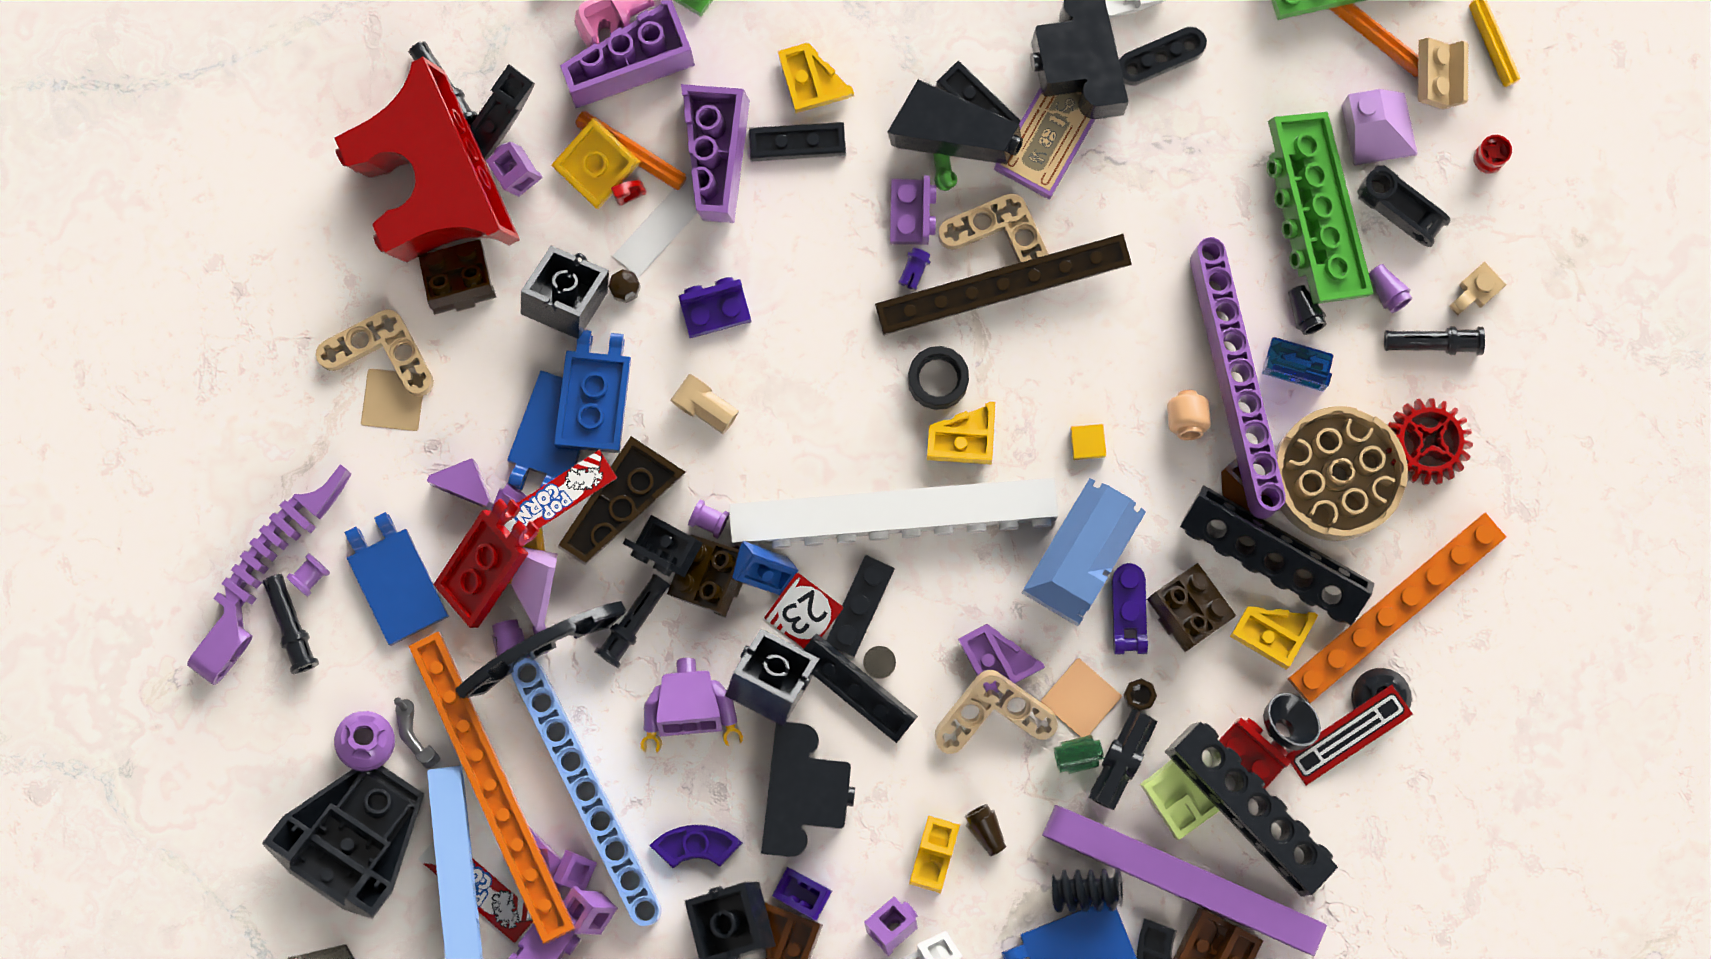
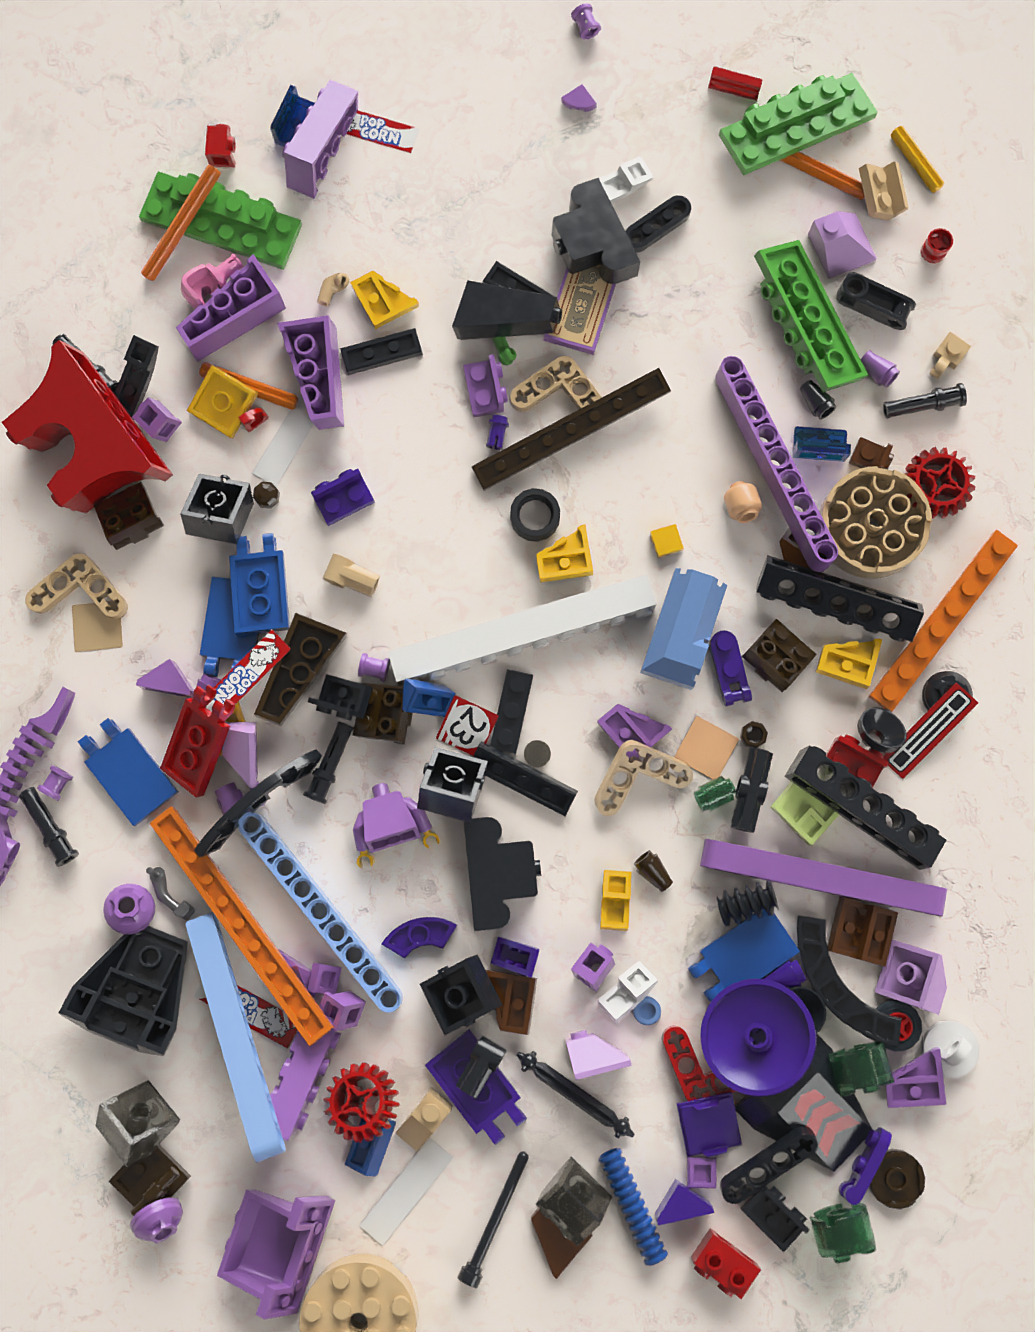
camera: 10 degrees left, 0 degrees up
(754, 49) = (331, 286): none -> tan arm
(1355, 391) = (871, 454): none -> reddish brown bracket

